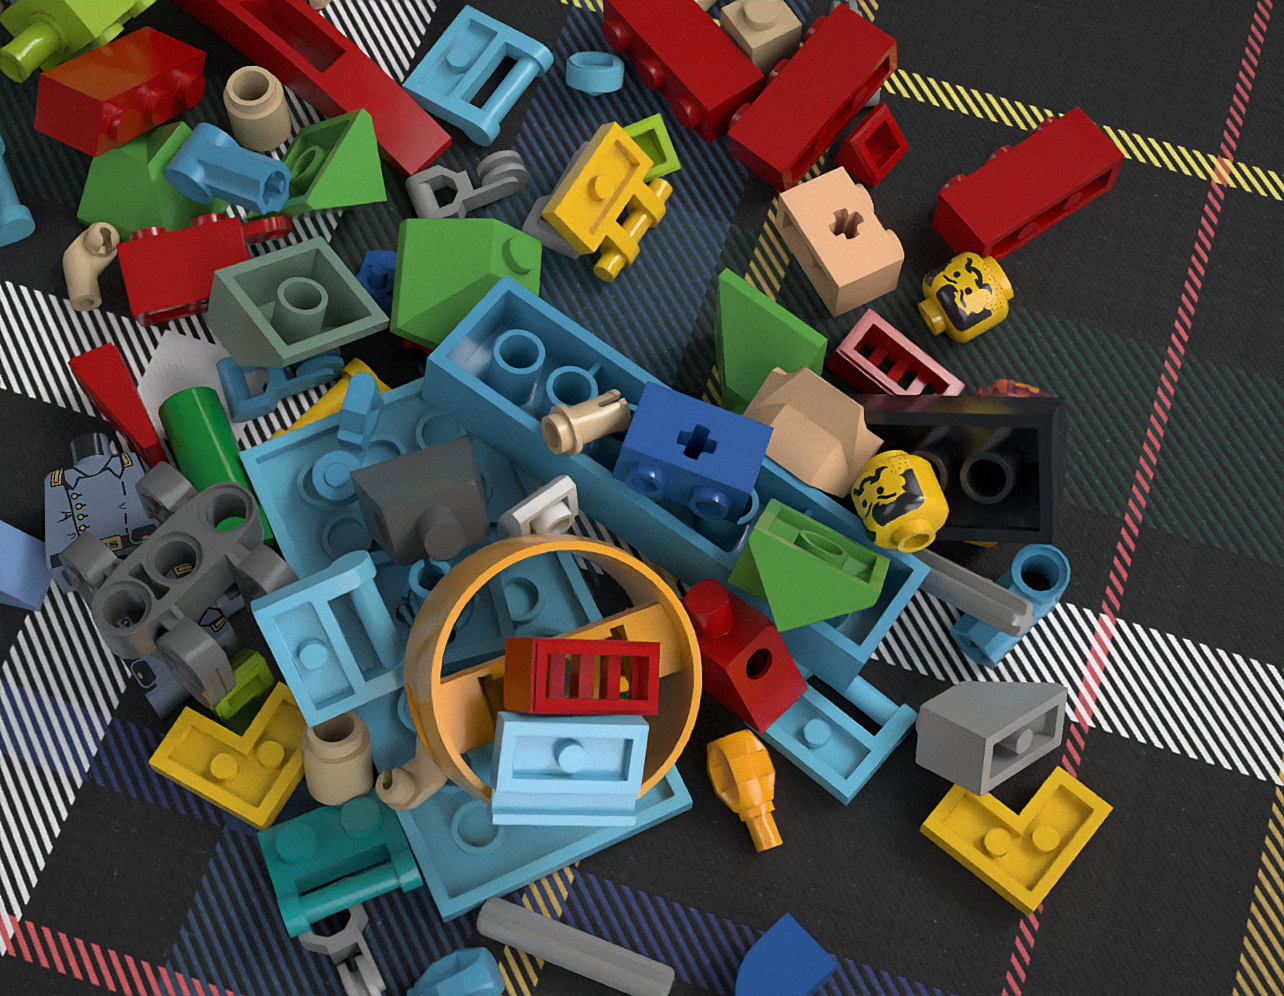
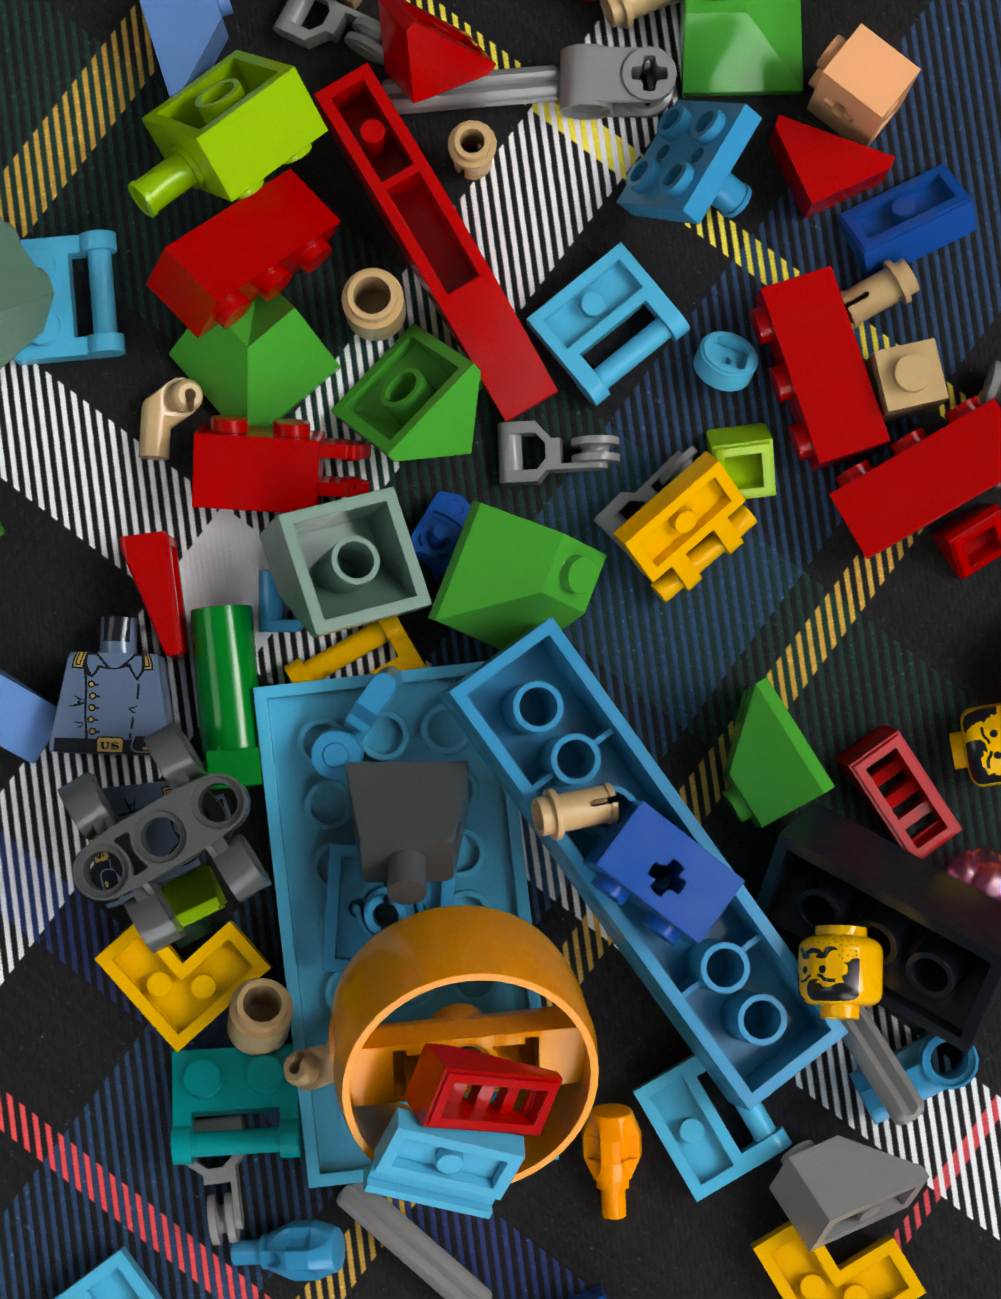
camera: 20 degrees right, 20 degrees up
(216, 166) = (315, 373): dark azure piece -> none
(314, 648) = (263, 948): medium azure plate -> none
(543, 512) = (504, 873): white slope -> none
(728, 638) = (639, 1049): red torso -> none
(806, 569) = (732, 1020): bright green slope -> none
(815, 431) = (781, 868): light nougat slope -> none
(839, 241) = (876, 614): light nougat brick -> none

